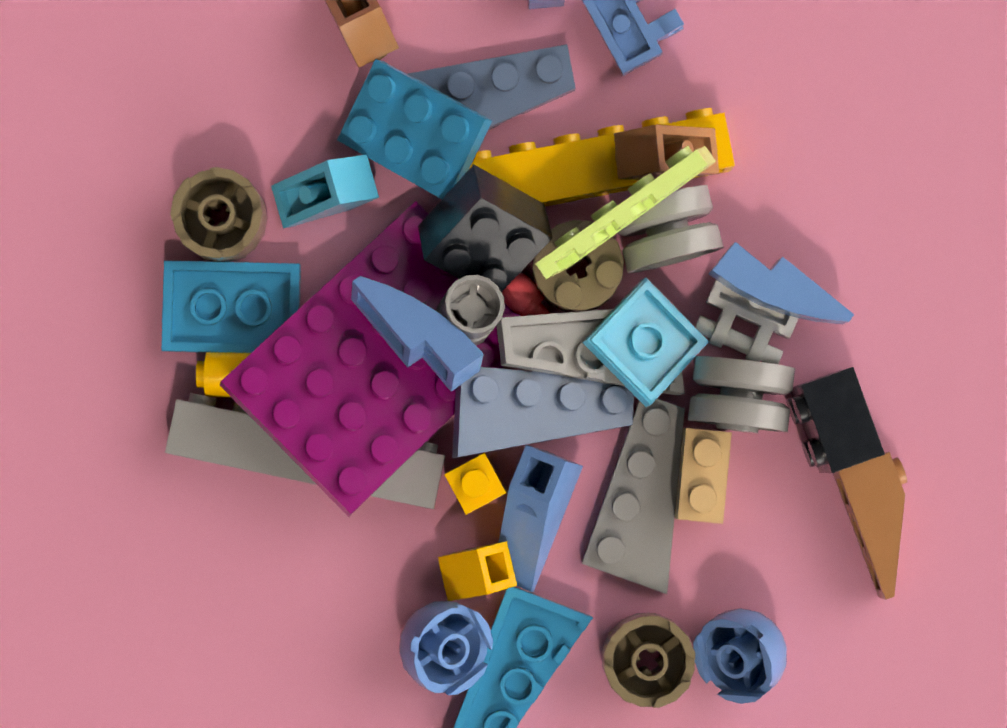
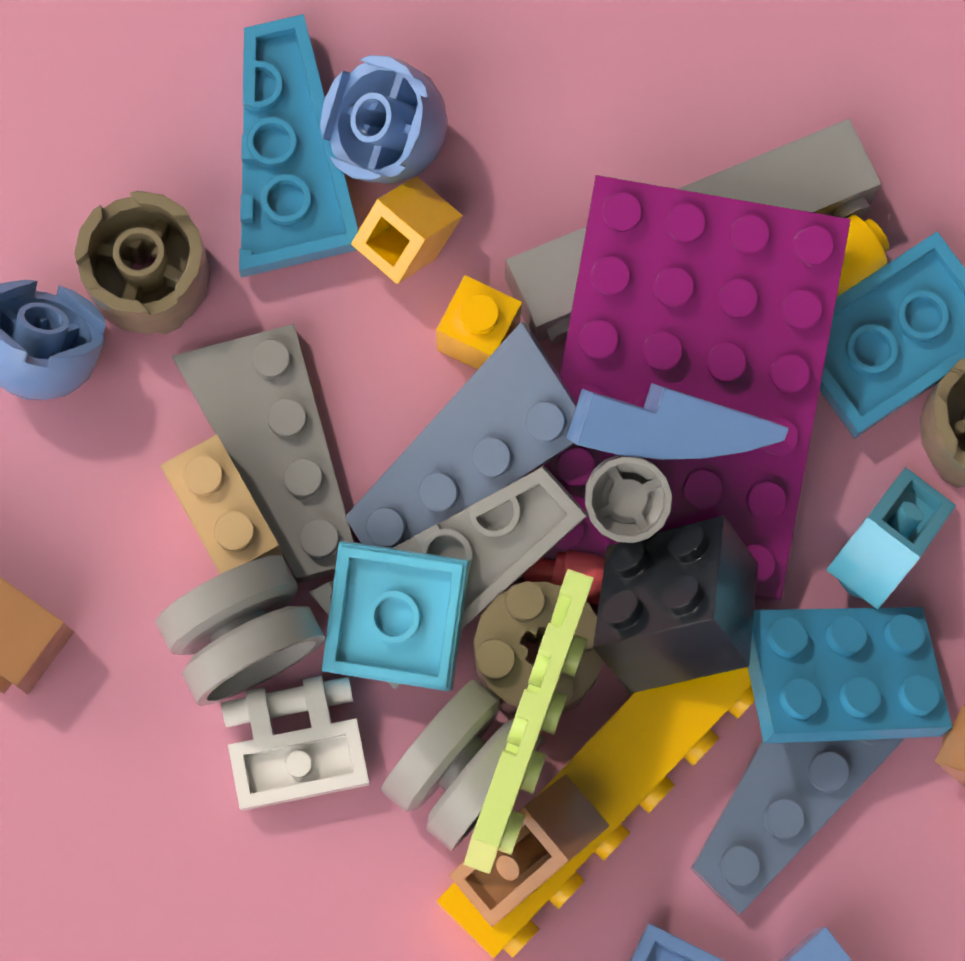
camera: 145 degrees right, 10 degrees down
(535, 510) = (389, 345): medium blue slope -> none
(778, 288) = (281, 784): medium blue slope -> none
(835, 422) = (104, 676): black brick -> none

